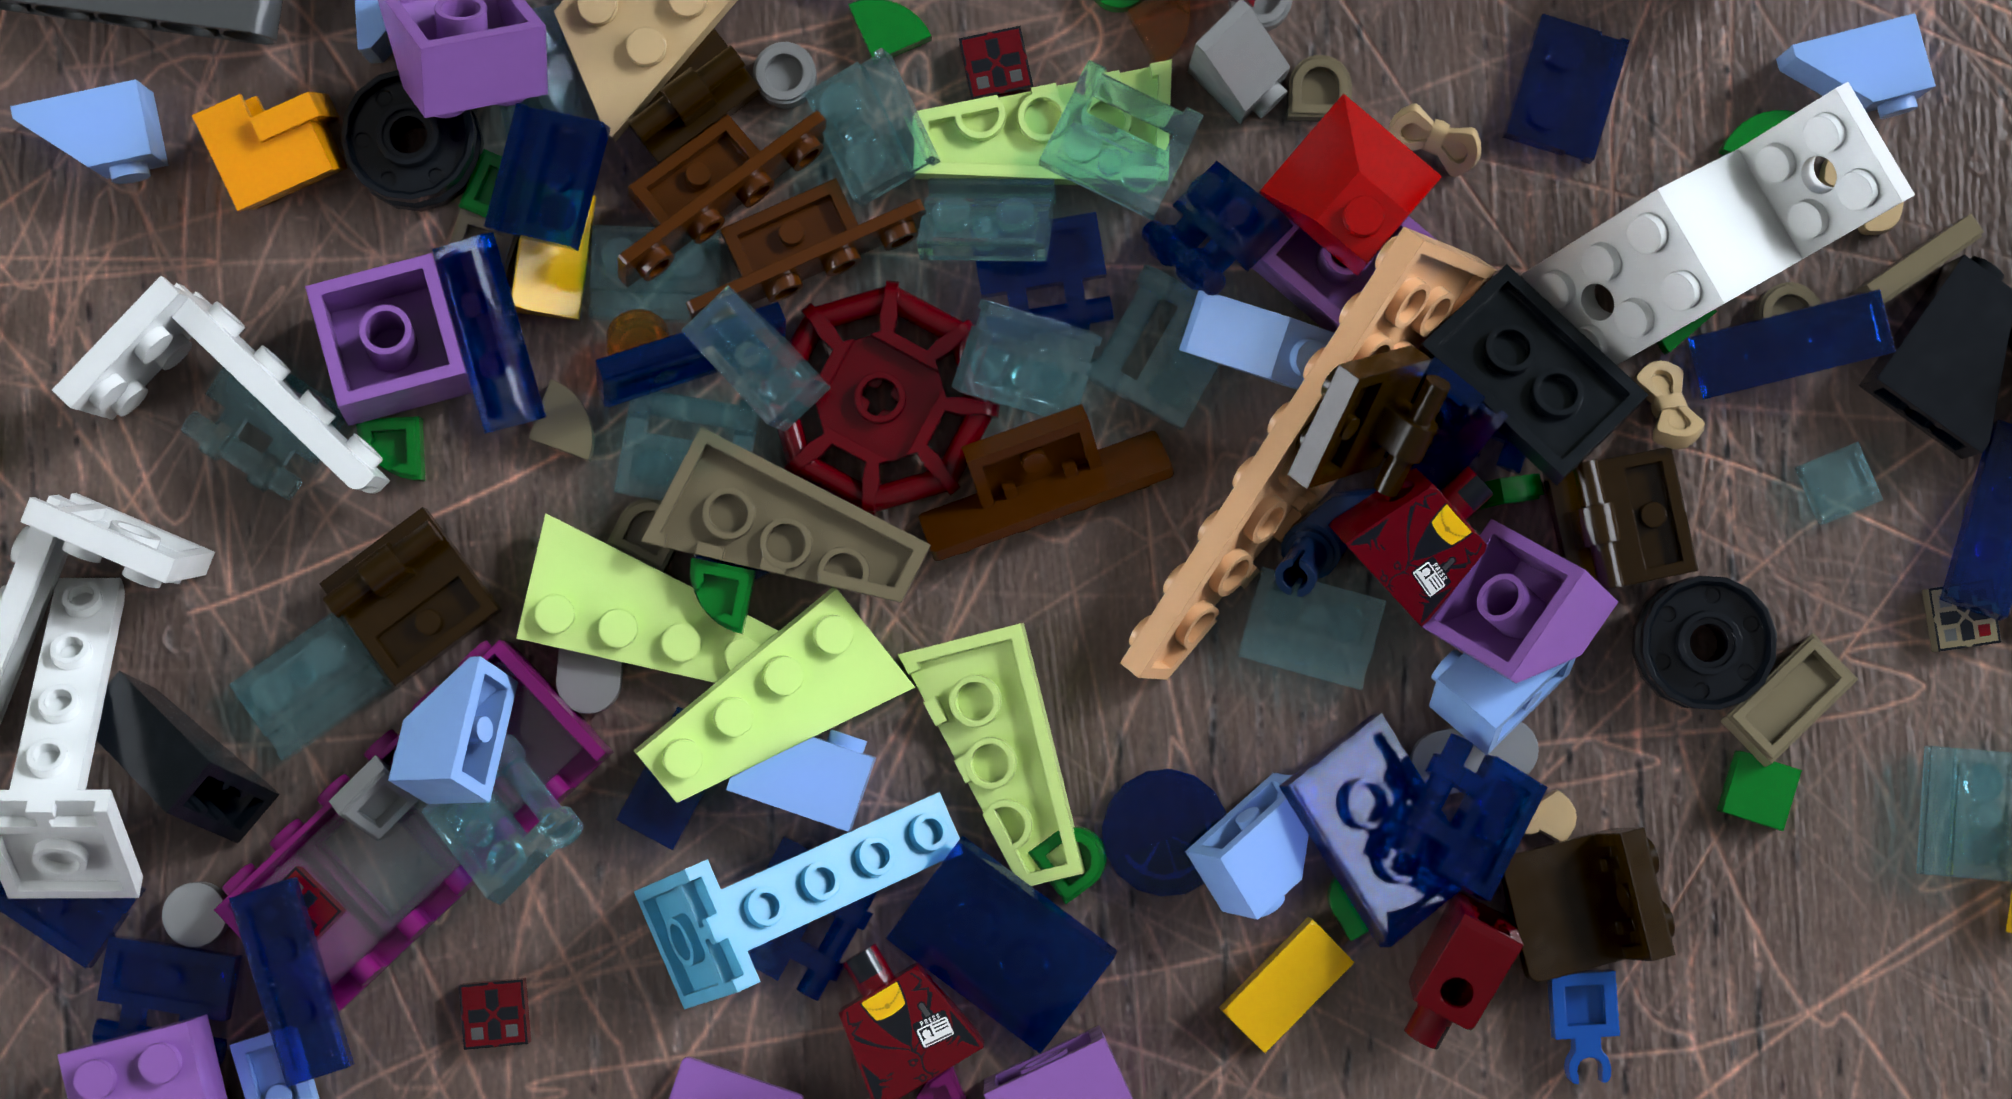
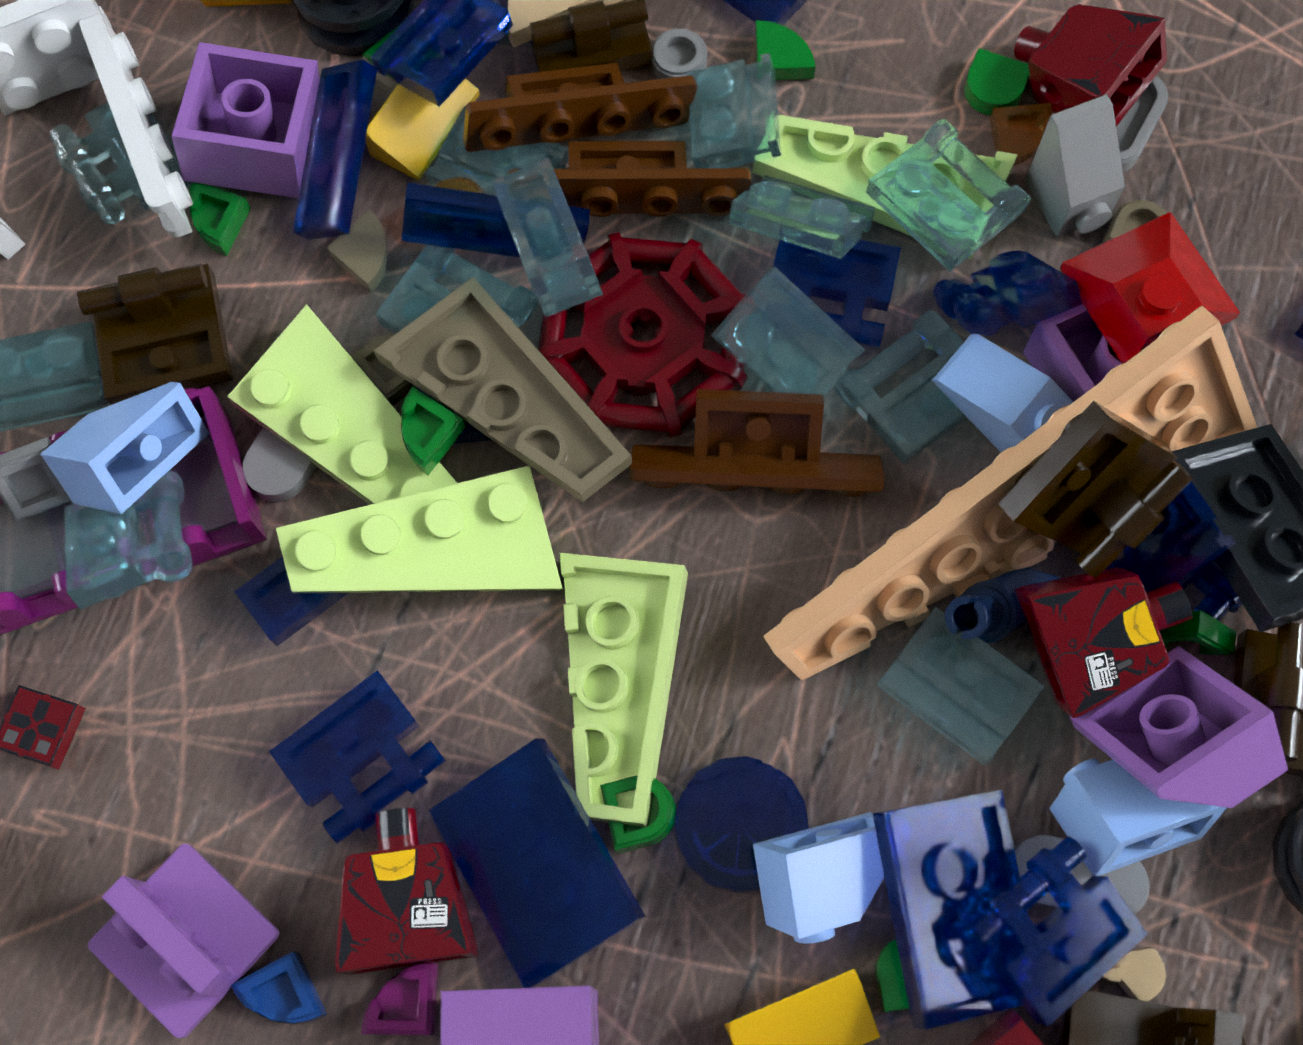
camera: 30 degrees right, 15 degrees down
(710, 929) = (274, 708): medium azure bracket -> none
(812, 779) = (429, 629): light blue slope -> none
(996, 63) = (862, 106): tile -> none
(1456, 147) = (1255, 319): tan piece -> none

